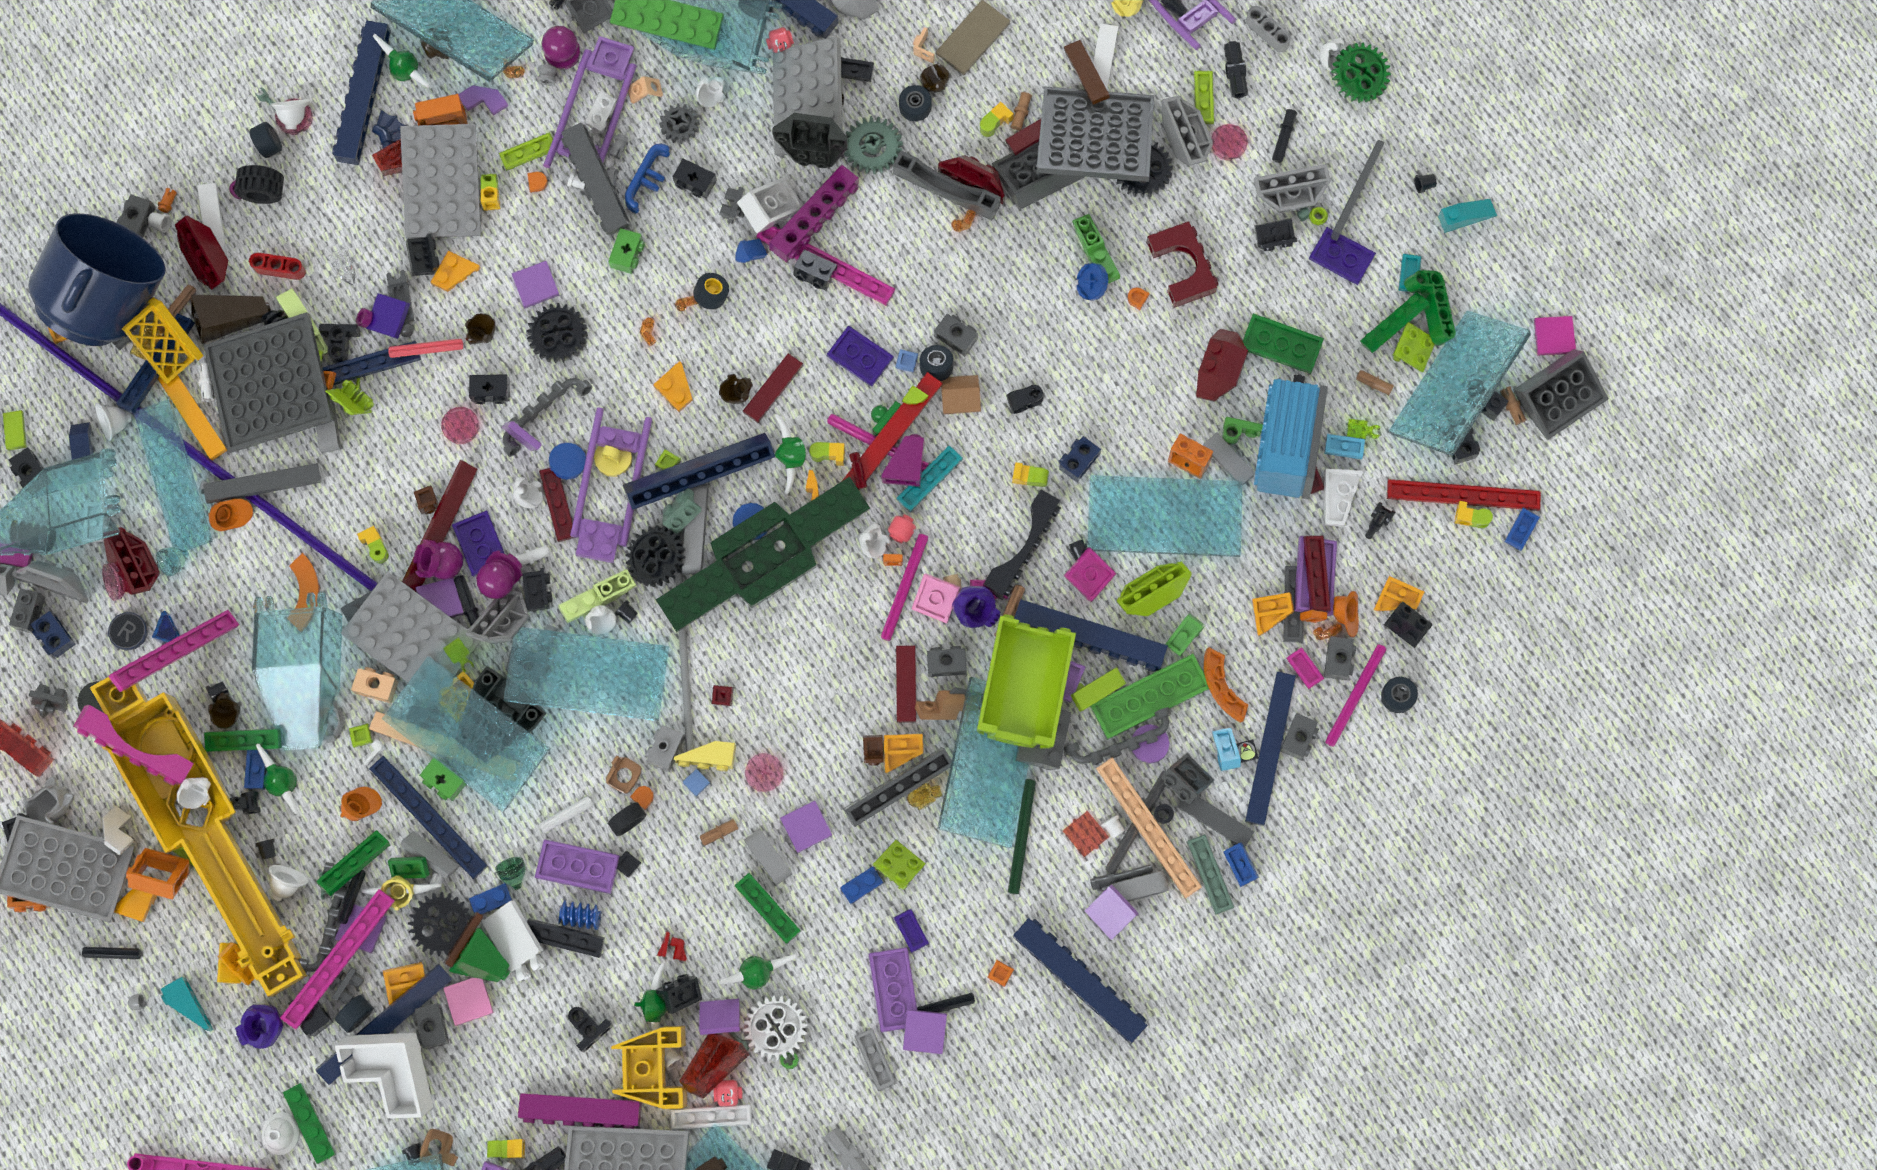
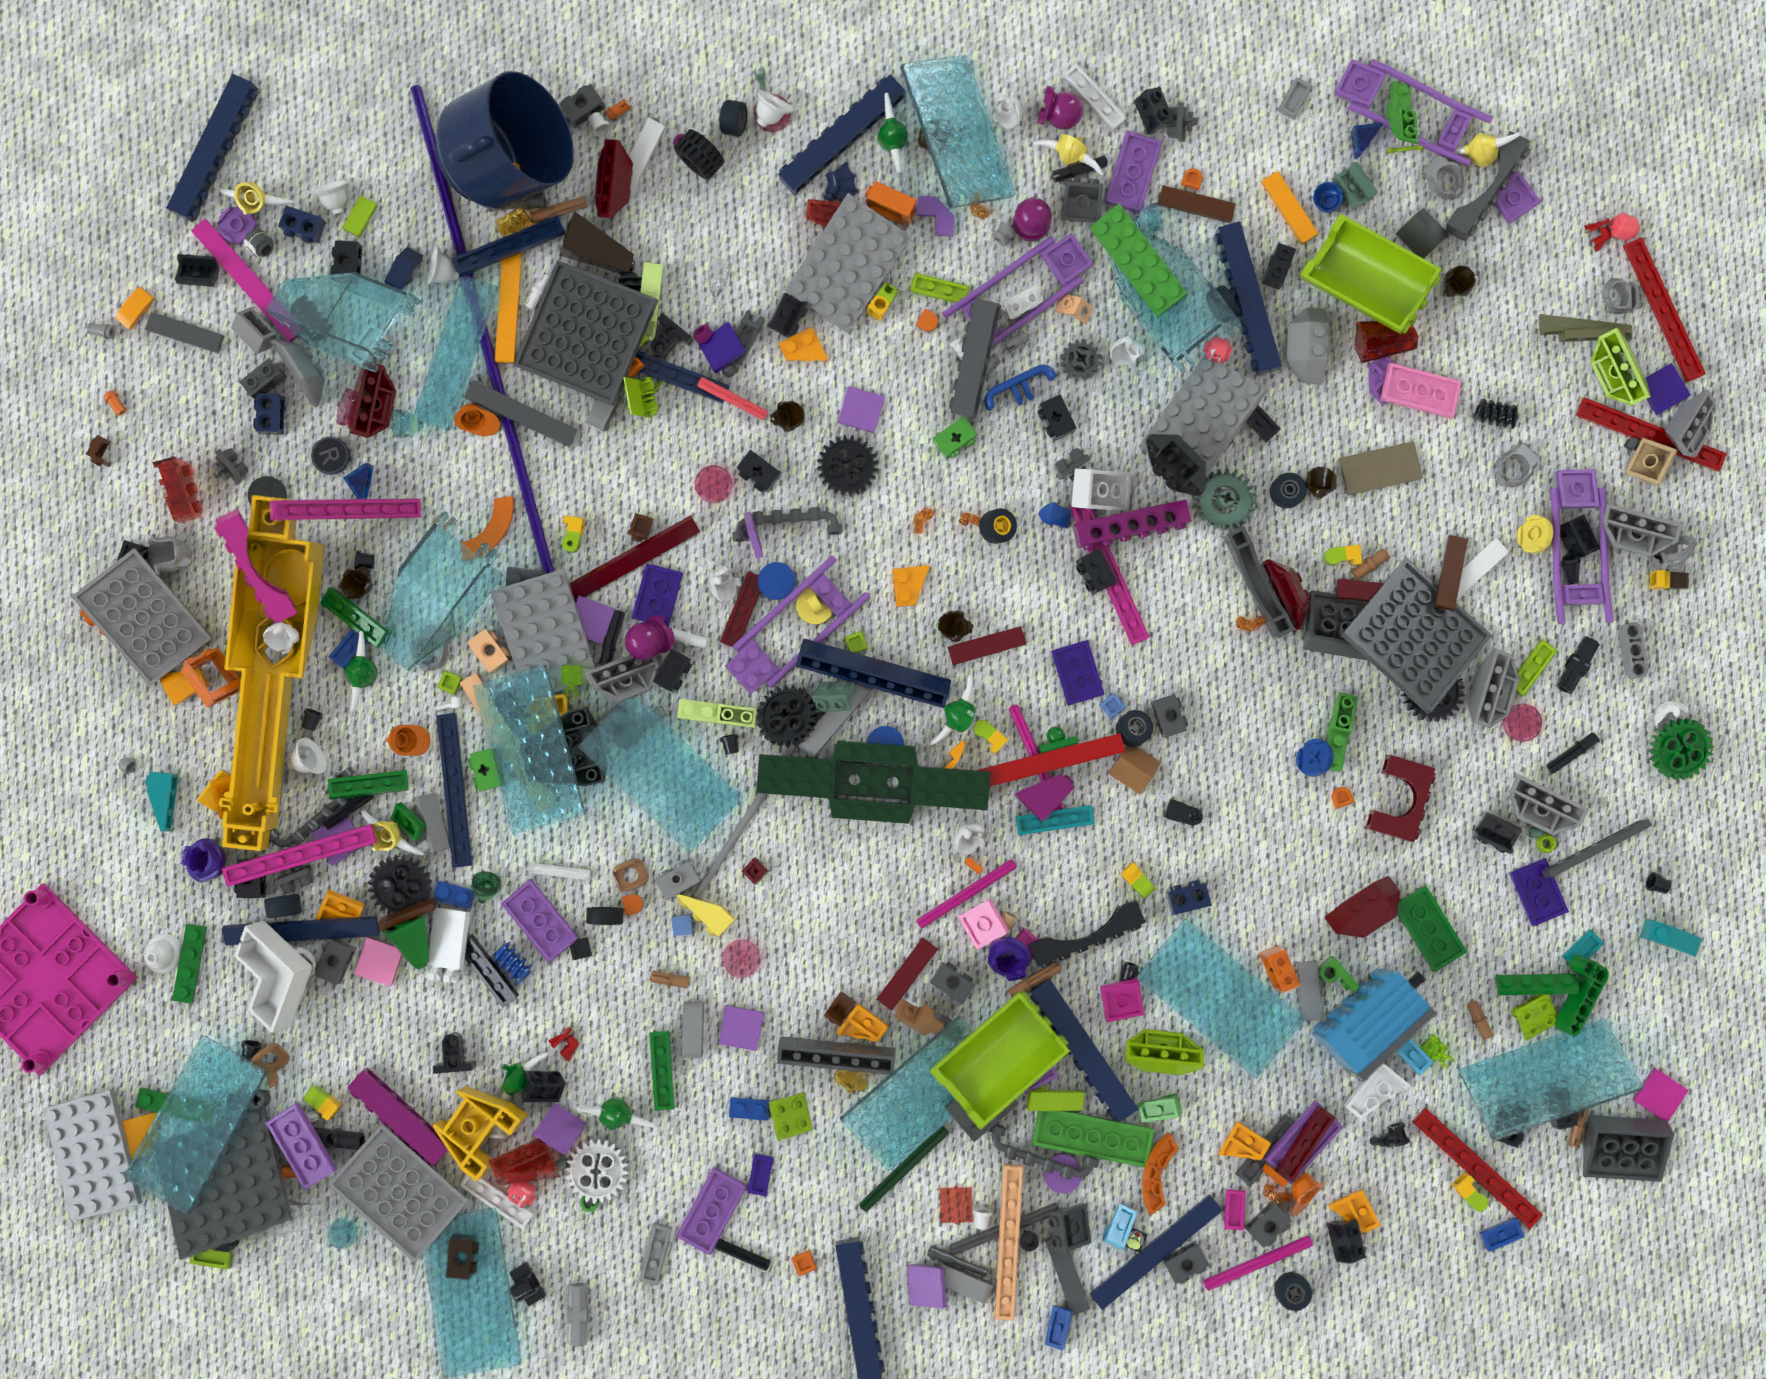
camera: 40 degrees right, 10 degrees up
(111, 953) = (135, 710): black axle -> none
(113, 836) = (199, 620): white tile -> none
(171, 327) = (538, 228): yellow fence -> none
(247, 803) = (322, 671): black piece -> none
(283, 271) = (661, 227): red beam -> none
(438, 560) = (611, 587): magenta tile -> none
(600, 620) = (704, 735): white hair -> none
(858, 470) = (1001, 772): dark red axle -> none
(901, 528) = (1000, 845): coral head -> none
(914, 396) = (1094, 746): lime tile -> none
(918, 43) = (1326, 449): light nougat bracket -> none
(924, 1031) = (709, 1264): medium lavender tile -> none
(1210, 874) = (1028, 1314): sand green tile -> none

